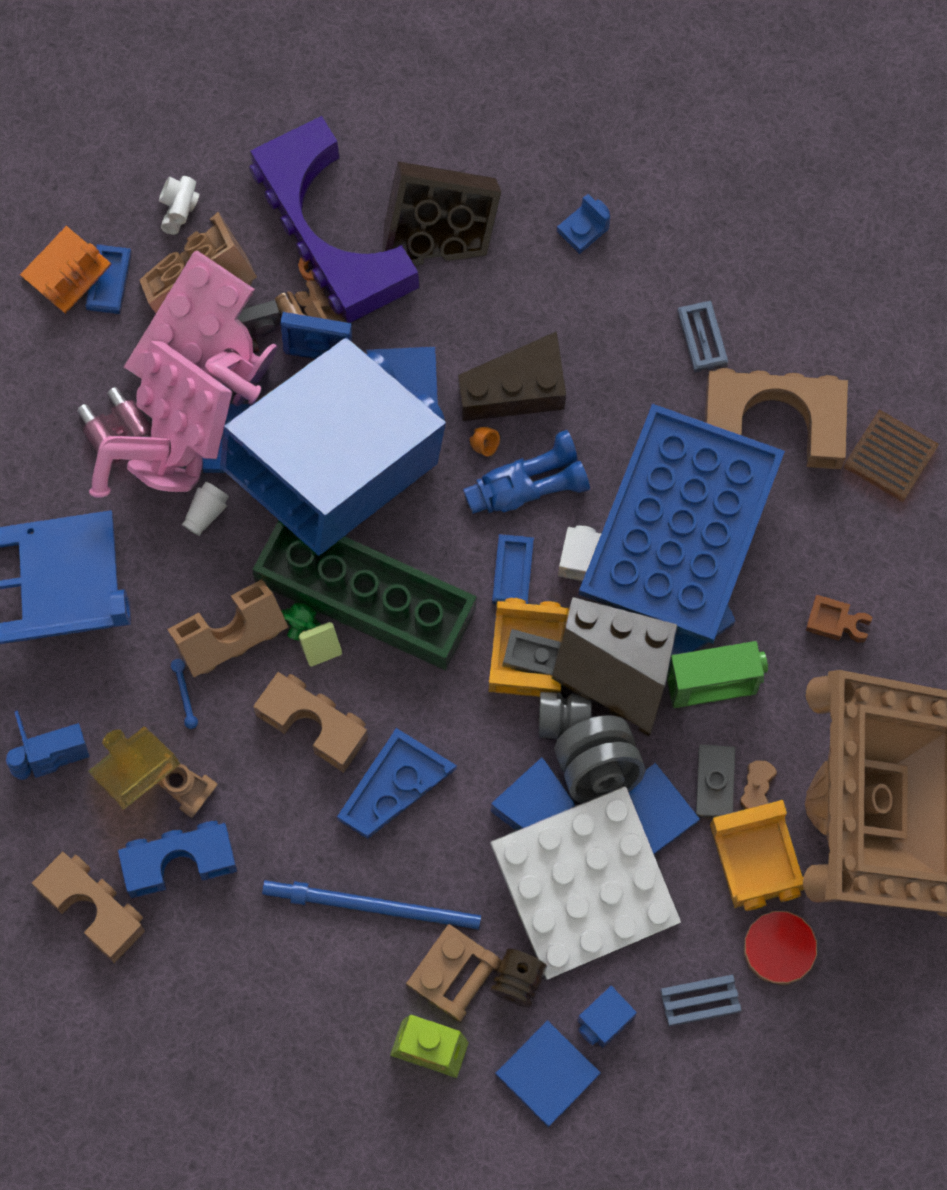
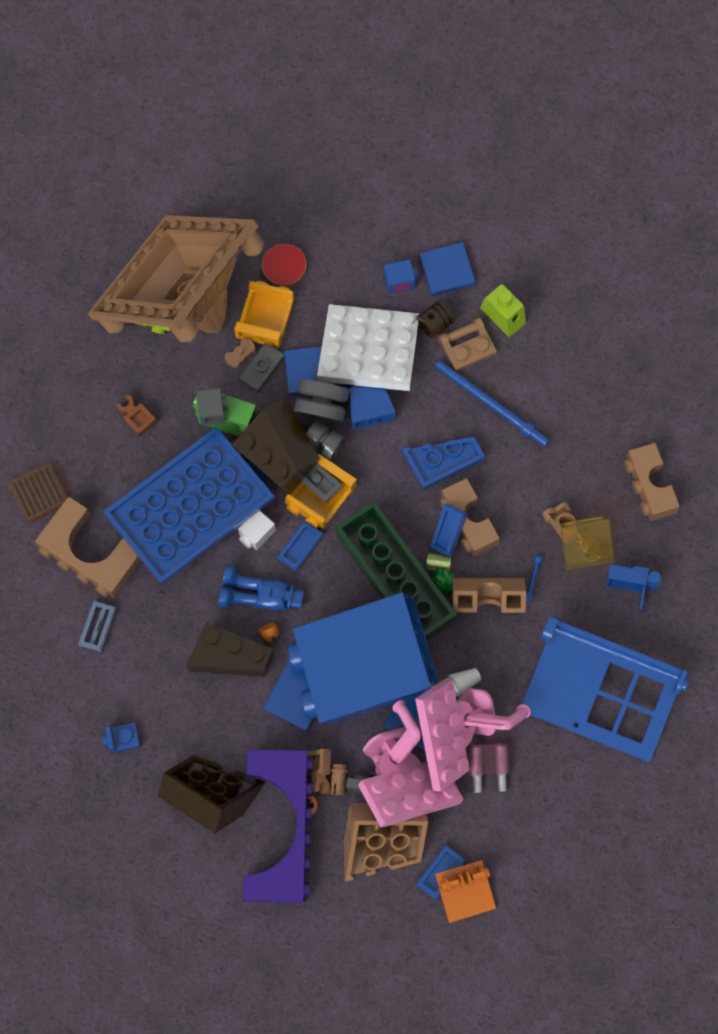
camera: 145 degrees left, 0 degrees up
(145, 861) = (606, 489): blue arch -> none
(180, 199) = (365, 900): white plate -> none
(311, 335) = (334, 744): blue tile -> none
(328, 684) = (448, 530): none -> blue tile
(696, 986) = (346, 254): sand blue tile -> none
(732, 645) = (211, 406): none -> dark grey brick

